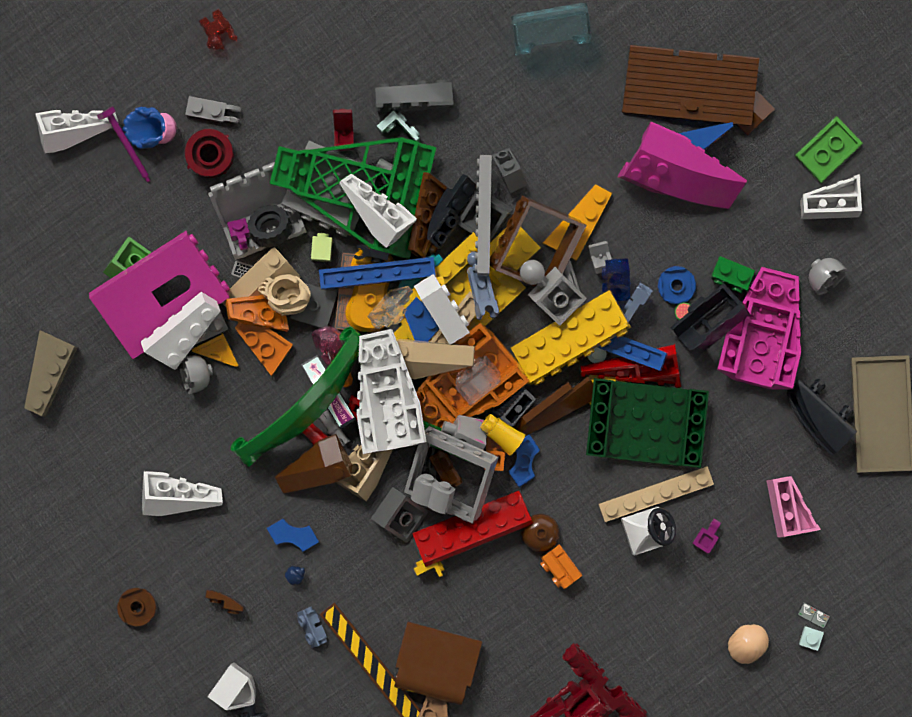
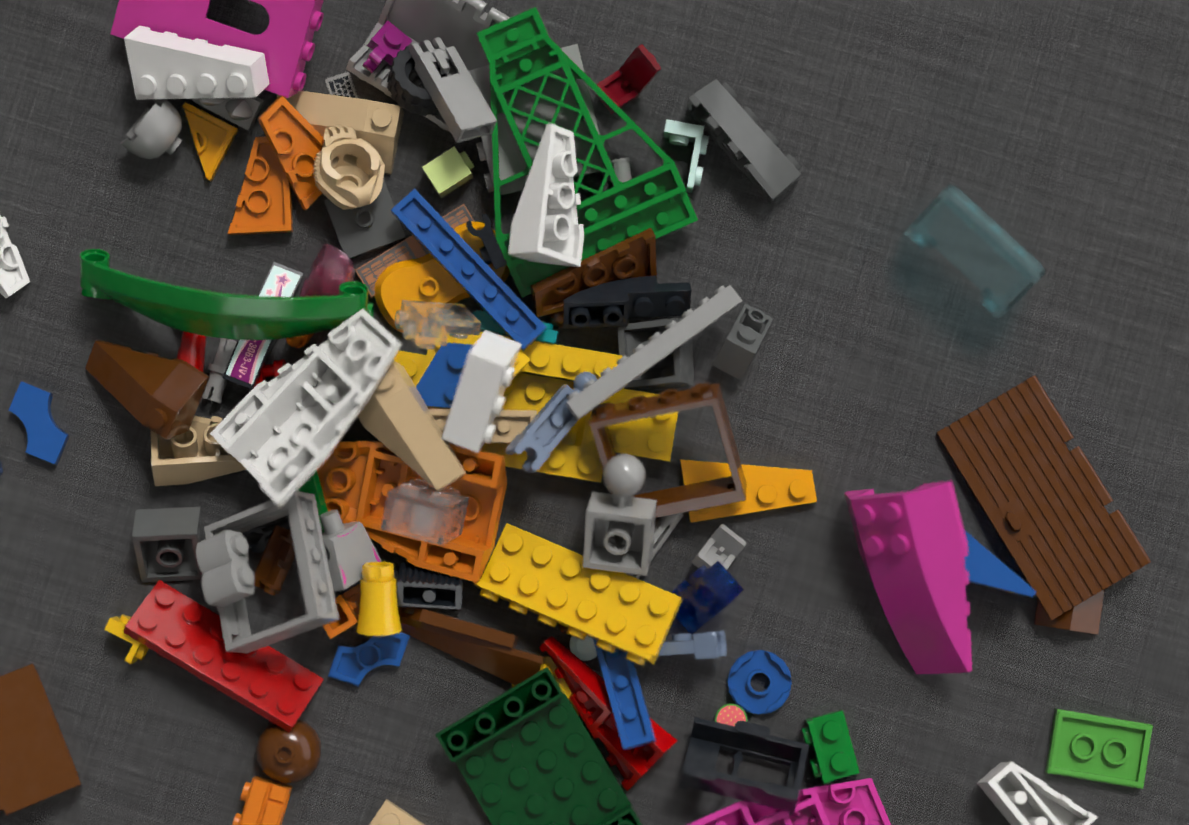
camera: 50 degrees right, 0 degrees up
(290, 215) = (456, 93): none -> light grey hinge

